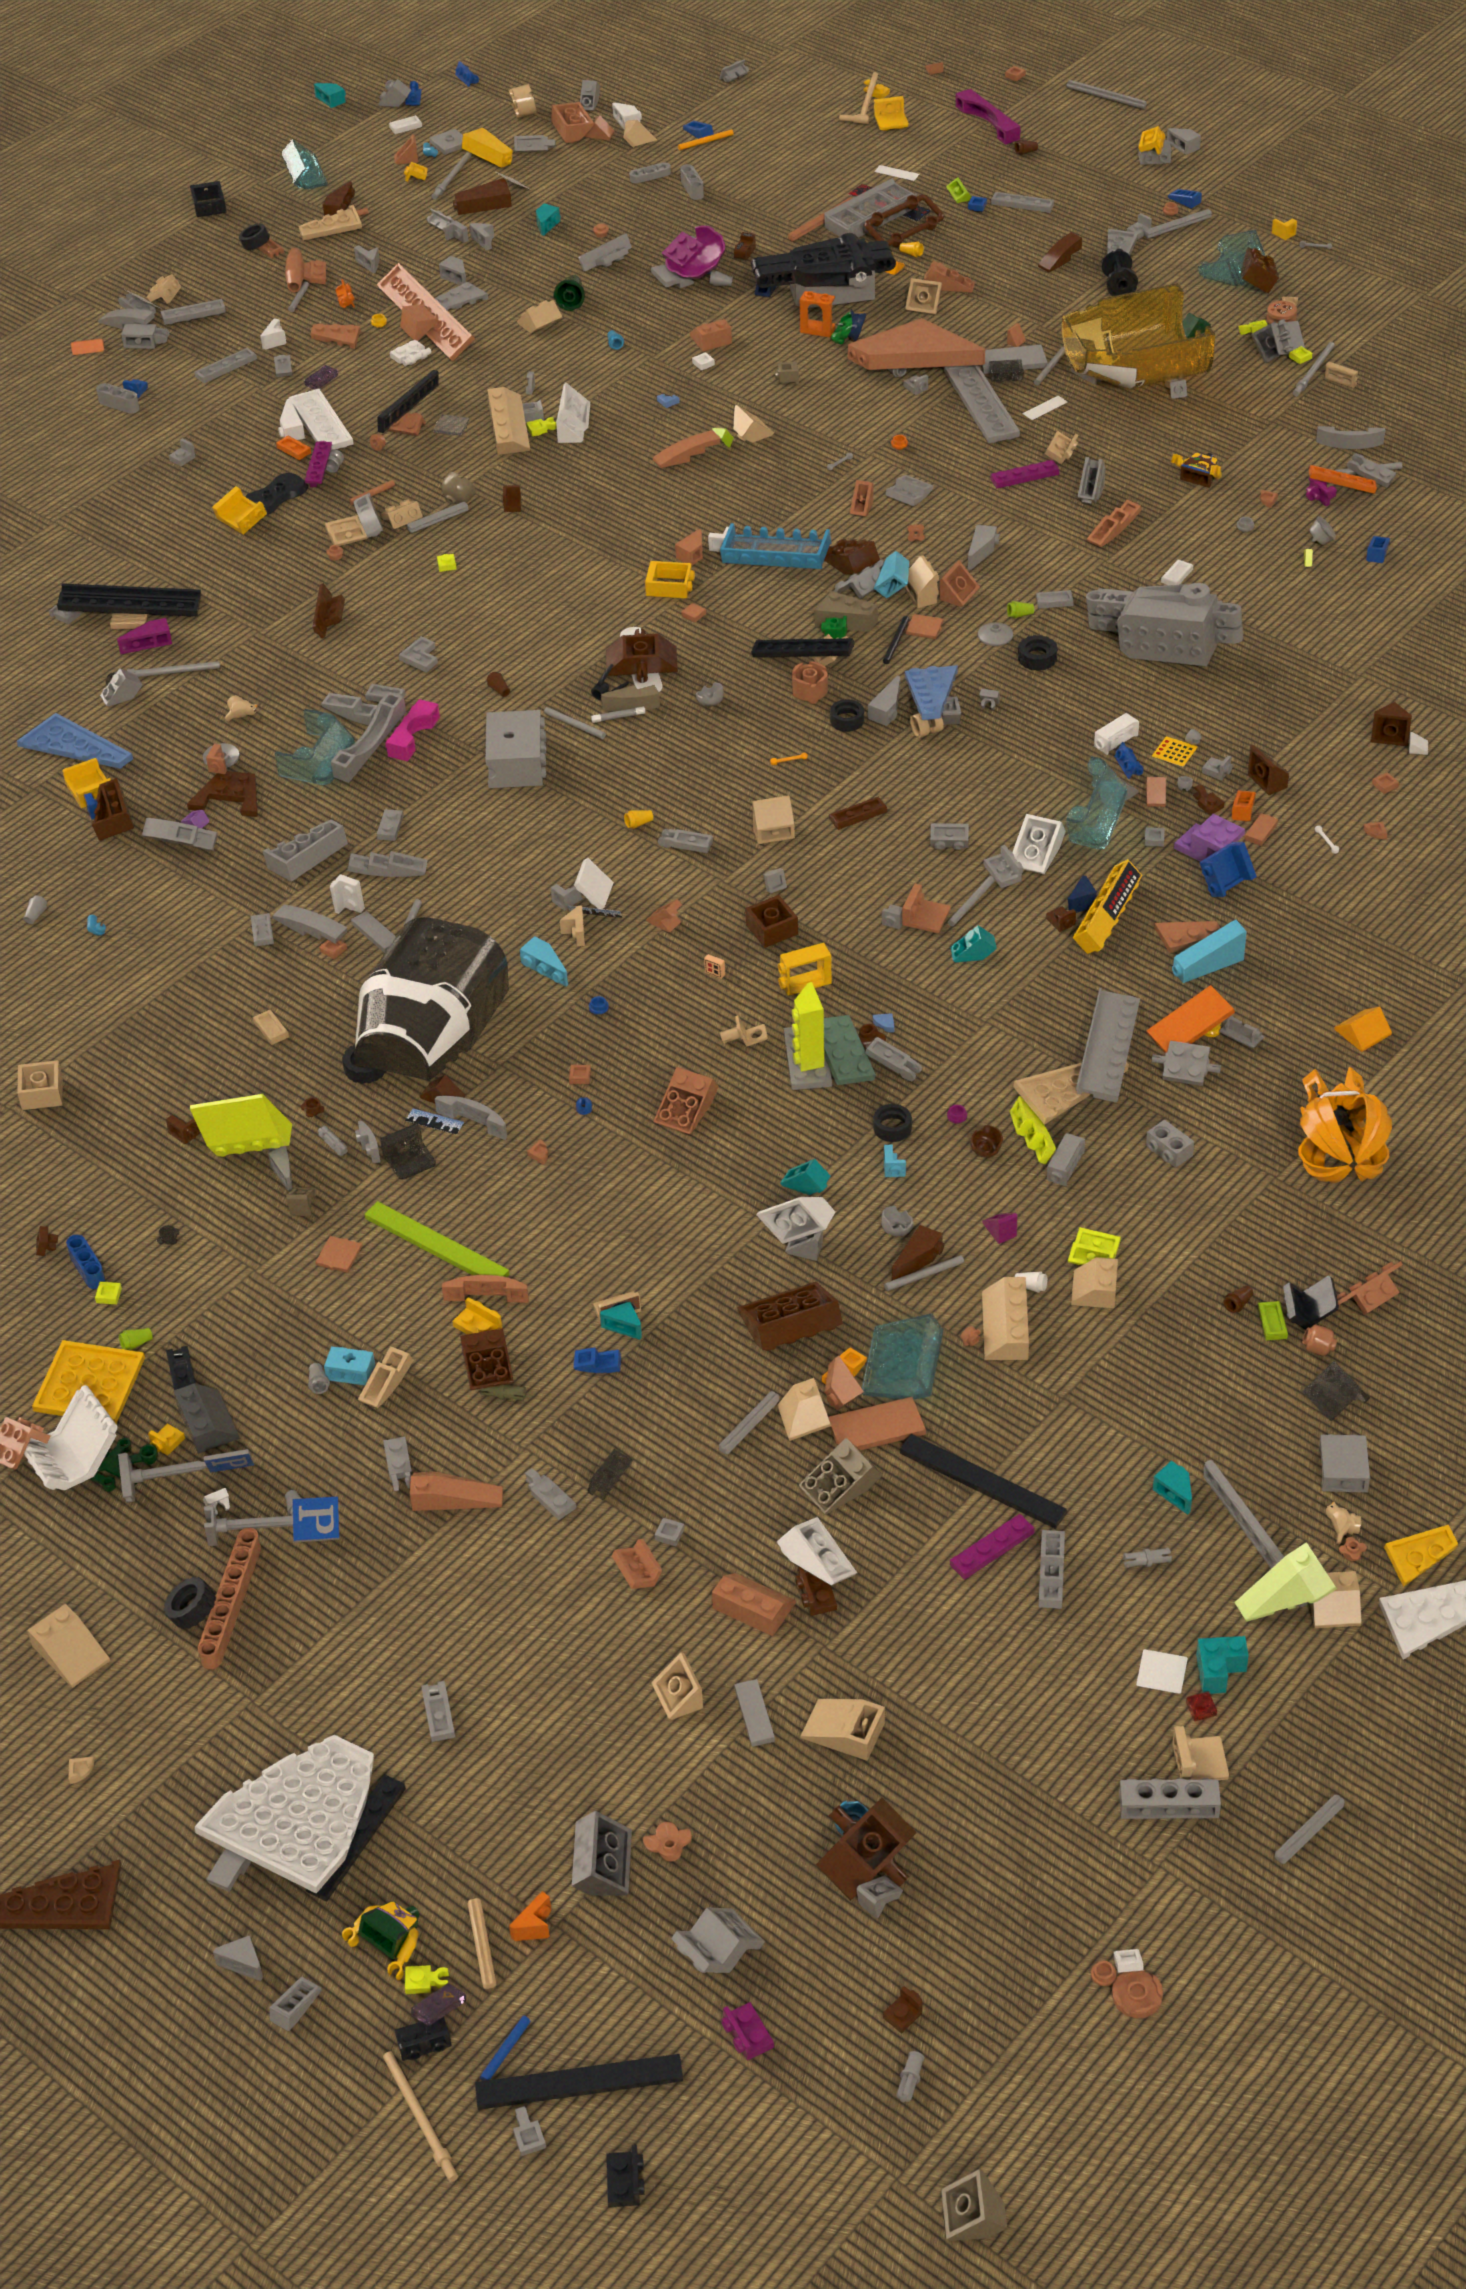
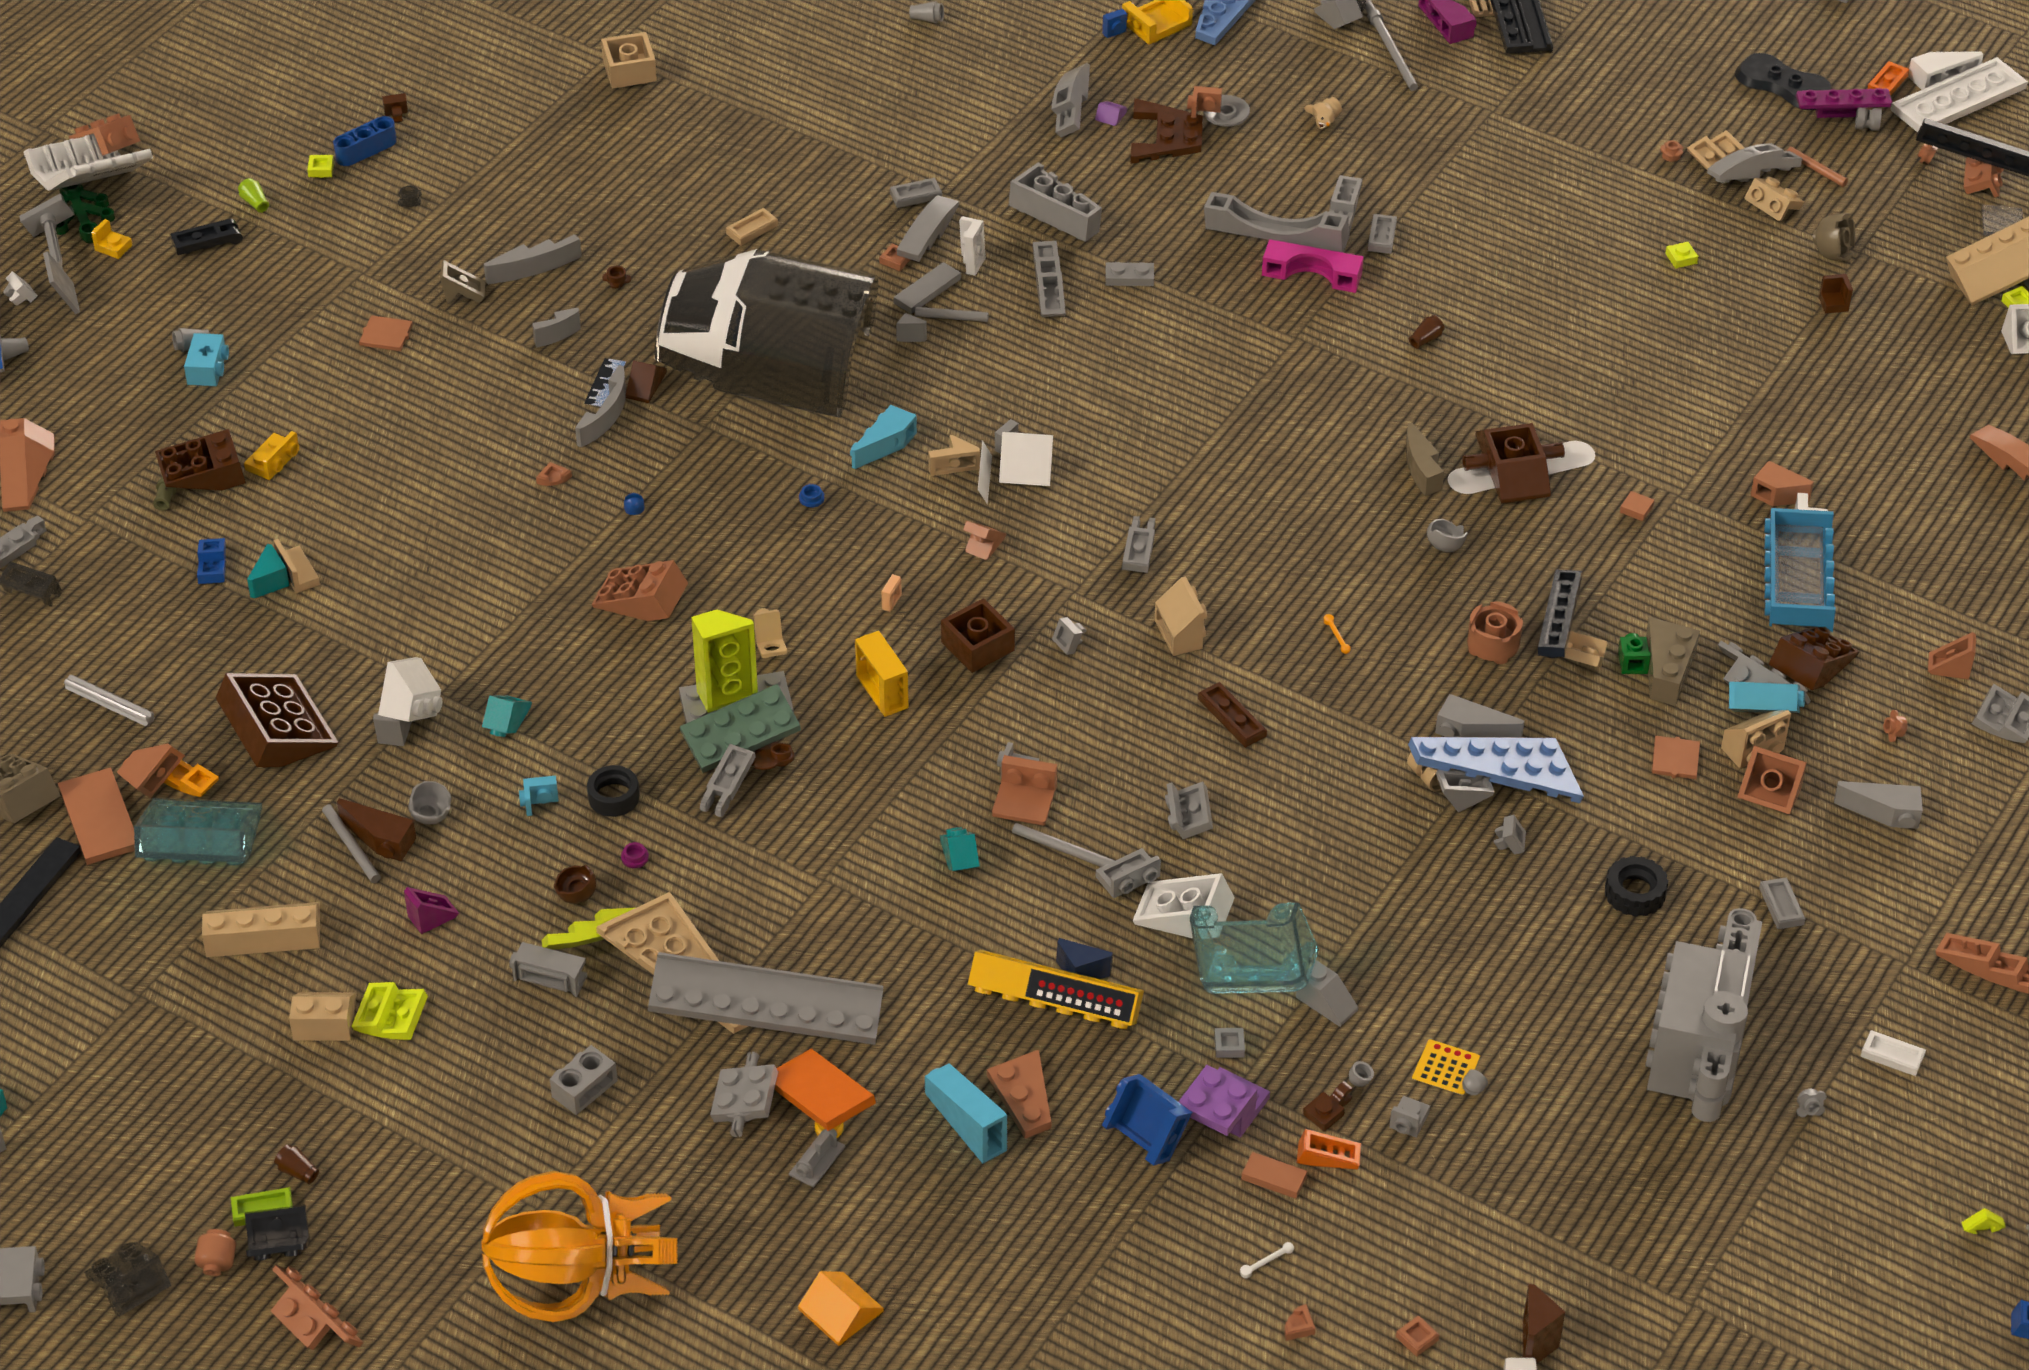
camera: 80 degrees right, 0 degrees up
(94, 927) = (905, 63): dark azure arm -> none
(103, 1369) = (192, 173): yellow plate -> none
(112, 811) = (1105, 39): reddish brown wedge -> none
(181, 1130) = (570, 178): reddish brown bracket -> none
(205, 1416) = (136, 261): dark grey slope -> none
(238, 511) = (1728, 51): yellow panel -> none
(241, 1125) = (545, 209): neon yellow slope -> none
(314, 763) = (1268, 194): clear light blue windscreen -> none
(327, 611) = (1539, 156): reddish brown bracket -> none
(332, 1140) = (563, 301): light grey axle -> none
(385, 1377) = (189, 391): tan slope -> none
(398, 1461) = (69, 419): light grey hinge -> none
(407, 1152) = (540, 362): clear smoke bracket -> none
(418, 654) = (1469, 249): light grey plate -> none
(433, 1241) = (397, 408): lime tile -> none
(437, 517) = (1779, 233): light grey axle -> none
(485, 1285) = (320, 469): nougat slope -> none
(515, 748) = (1280, 366): light grey gear -> none
(573, 722) = (1367, 415): light grey bar -> none
(580, 1074) = (690, 495): nougat tile -> none
(602, 687) = (1439, 427): black plant -> none
(618, 714) = (1394, 454): light grey bar -> none
(636, 818) = (1175, 492): yellow cone -> none
(669, 570) = (1709, 452): yellow window -> none
(803, 1410) = (115, 743): tan slope -> none
(847, 706) = (1431, 668): black tyre -> none
(884, 1021) = (807, 772): medium blue tile -> none
(896, 639) = (1632, 726): black bar -> none
(970, 1336) = (237, 892): nougat plate -> none
(995, 634) = (1680, 840): light grey dish -> none
(1019, 609) = (1737, 858): lime cone -> none
(1034, 1281) = (329, 948): white cone -> none
(1061, 918) = (1037, 945): reddish brown bracket -> none
(1115, 733) = (1458, 985): white window -> none
(1127, 761) = (1391, 1009): blue hinge -> none
(1155, 791) = (1340, 1040): nougat slope -> none
(1266, 772) = (1391, 1168): reddish brown slope -> none

